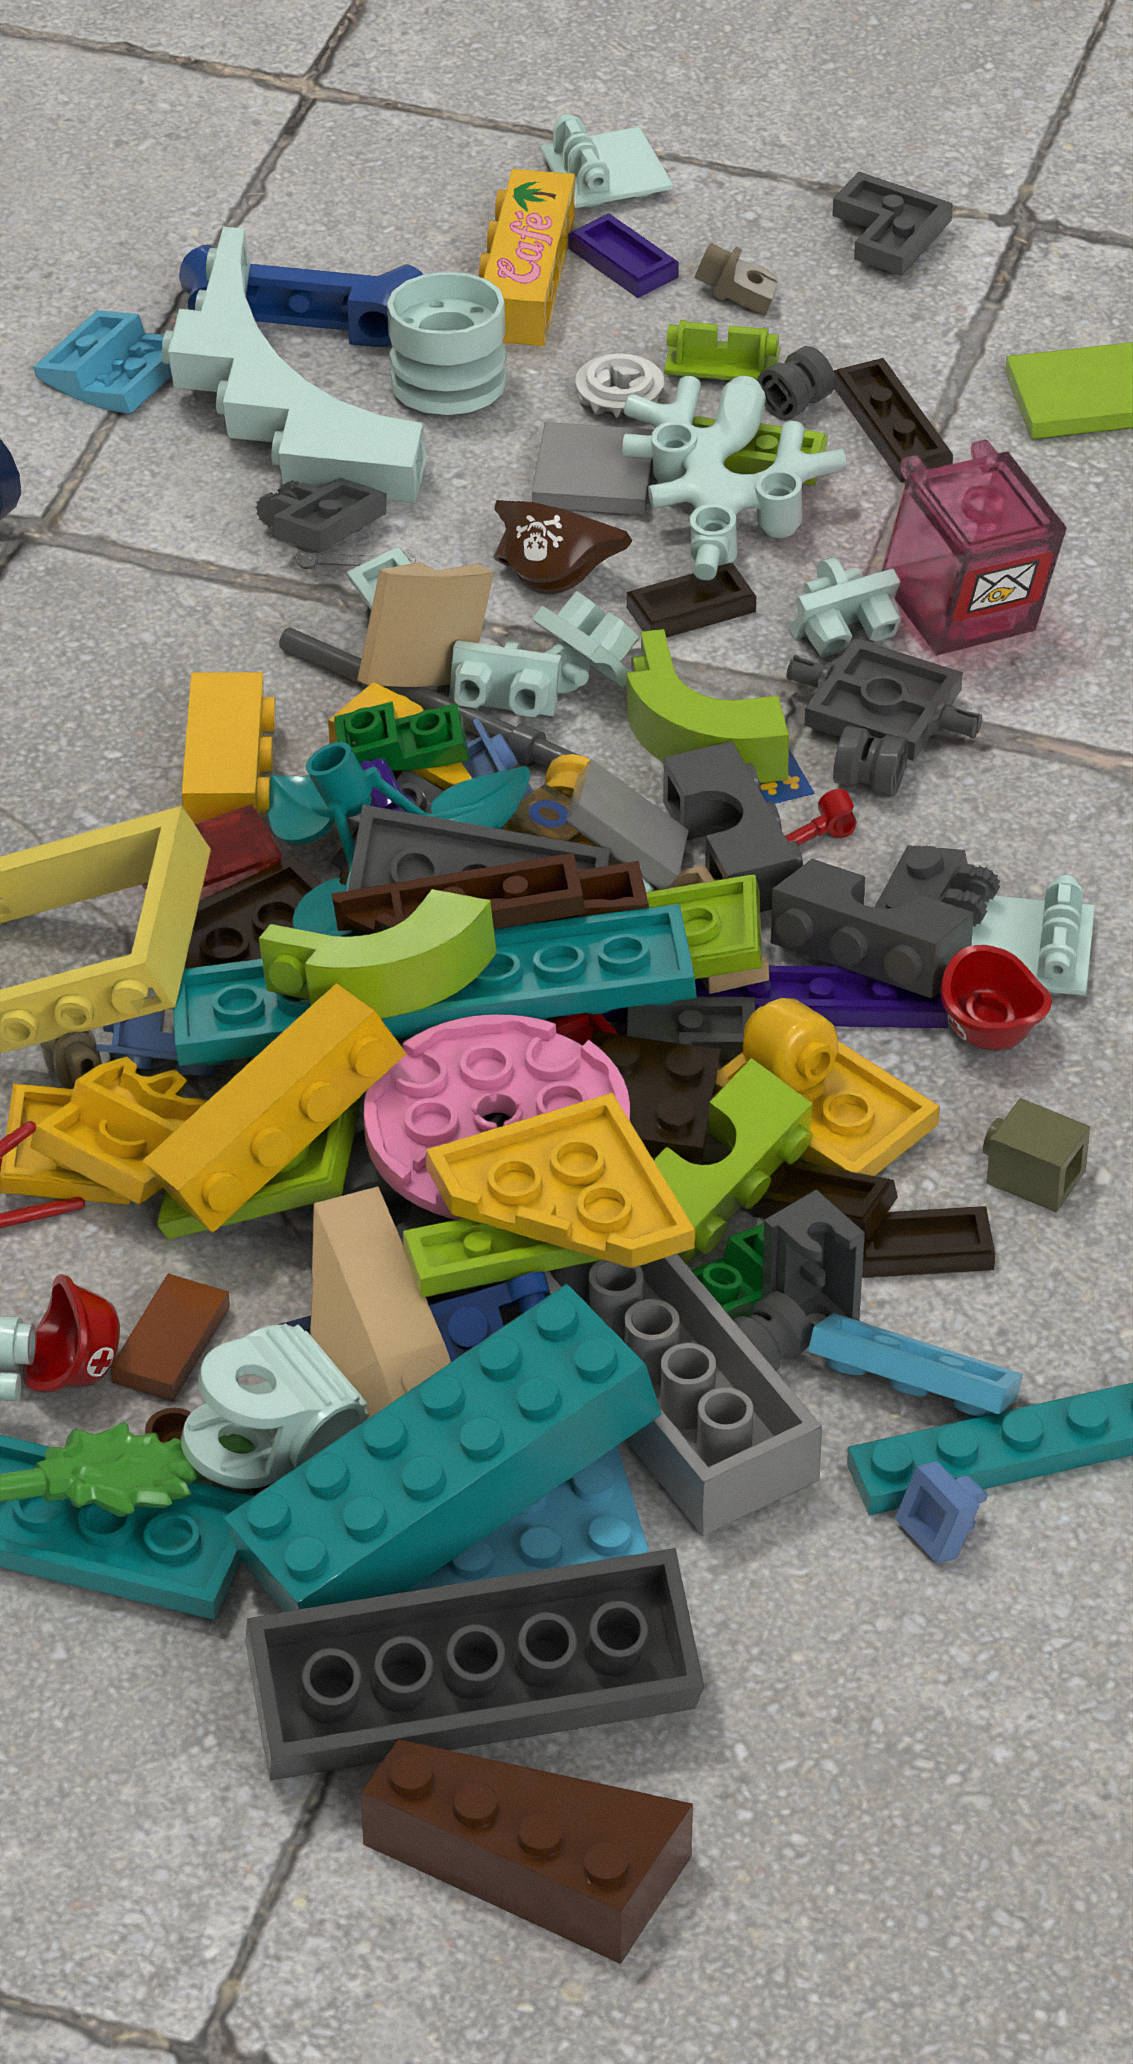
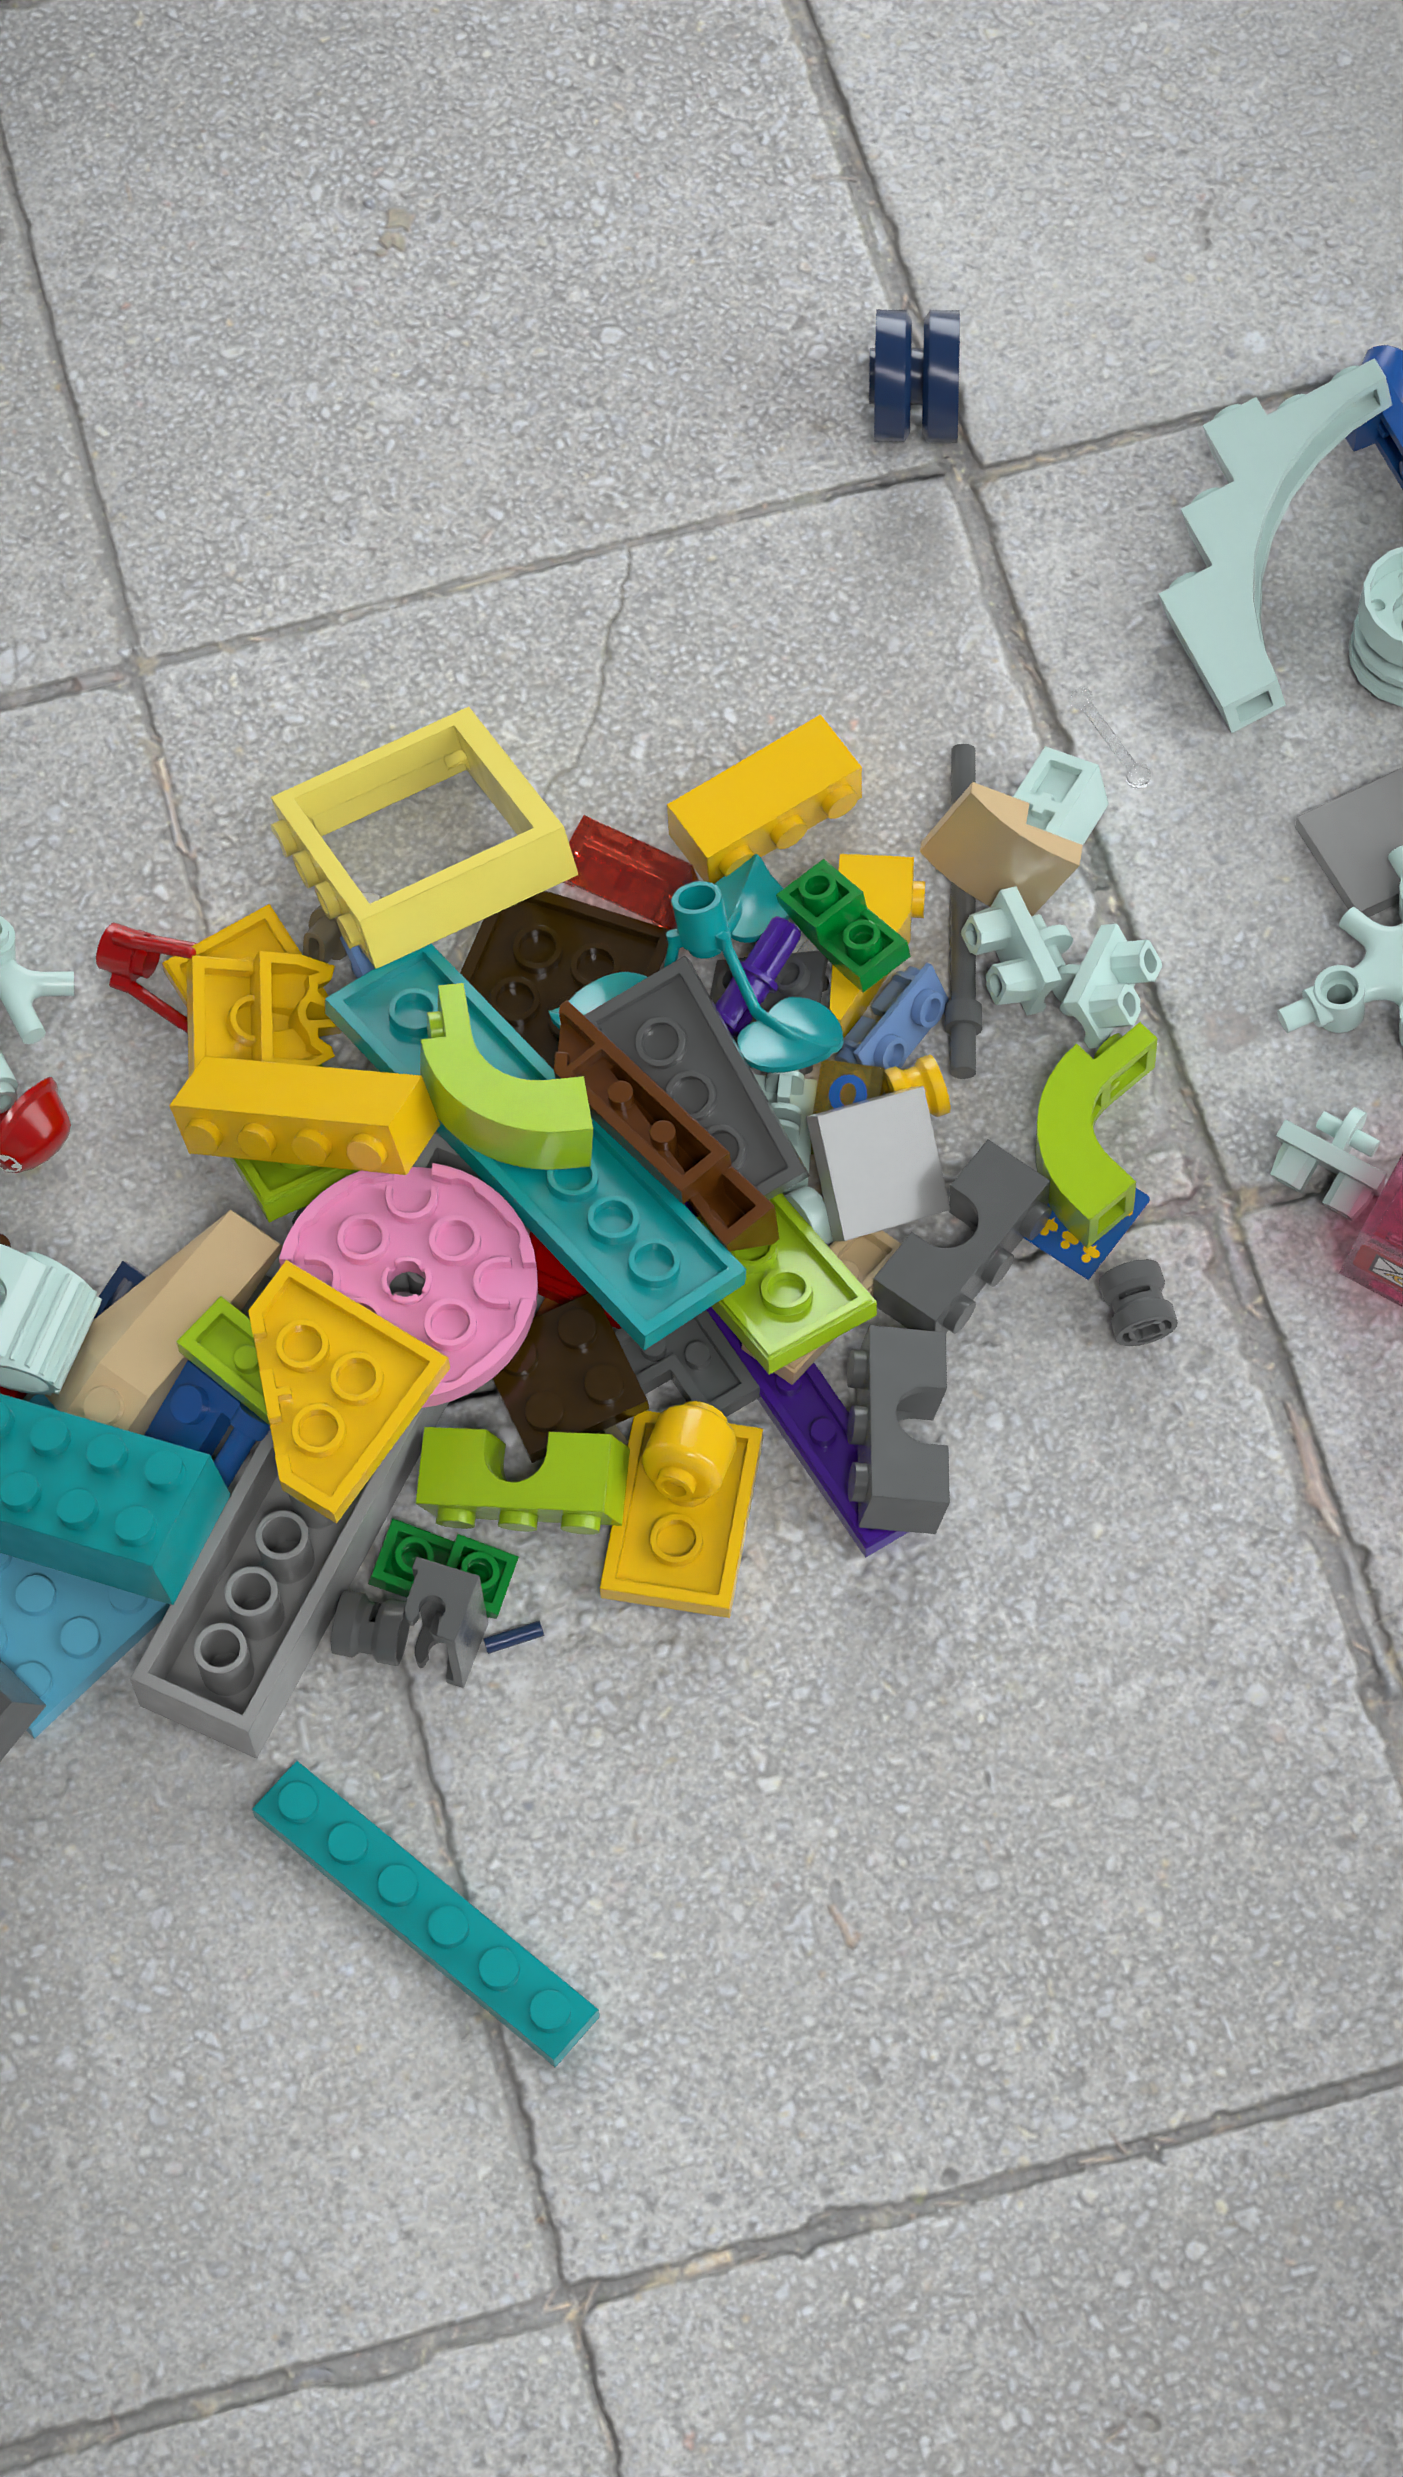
camera: 60 degrees right, 20 degrees up
(107, 362) = (1212, 370): medium azure slope -> none
(170, 1337) = (94, 1191): dark orange tile -> none
(320, 516) = (1129, 680): dark grey hinge -> none
(552, 545) = (1222, 877): reddish brown hat -> none
(690, 602) = (1251, 1031): dark brown tile -> none
(835, 818) = (1055, 1318): red hand -> none
(857, 1195) = (564, 1584): dark brown tile -> none
(884, 694) = (1235, 1265): dark grey plate -> none
(914, 1365) = (419, 1760): medium azure plate -> none
(930, 1243) = (582, 1686): dark brown tile -> none
(939, 1510) = (269, 1874): medium blue tile -> none
(940, 876) = (1003, 1442): dark grey hinge -> none
(992, 997) = (884, 1575): red helmet -> none
(1036, 1154) = (730, 1717): olive brick -> none
(1044, 934) = (1007, 1564): light aqua hinge -> none

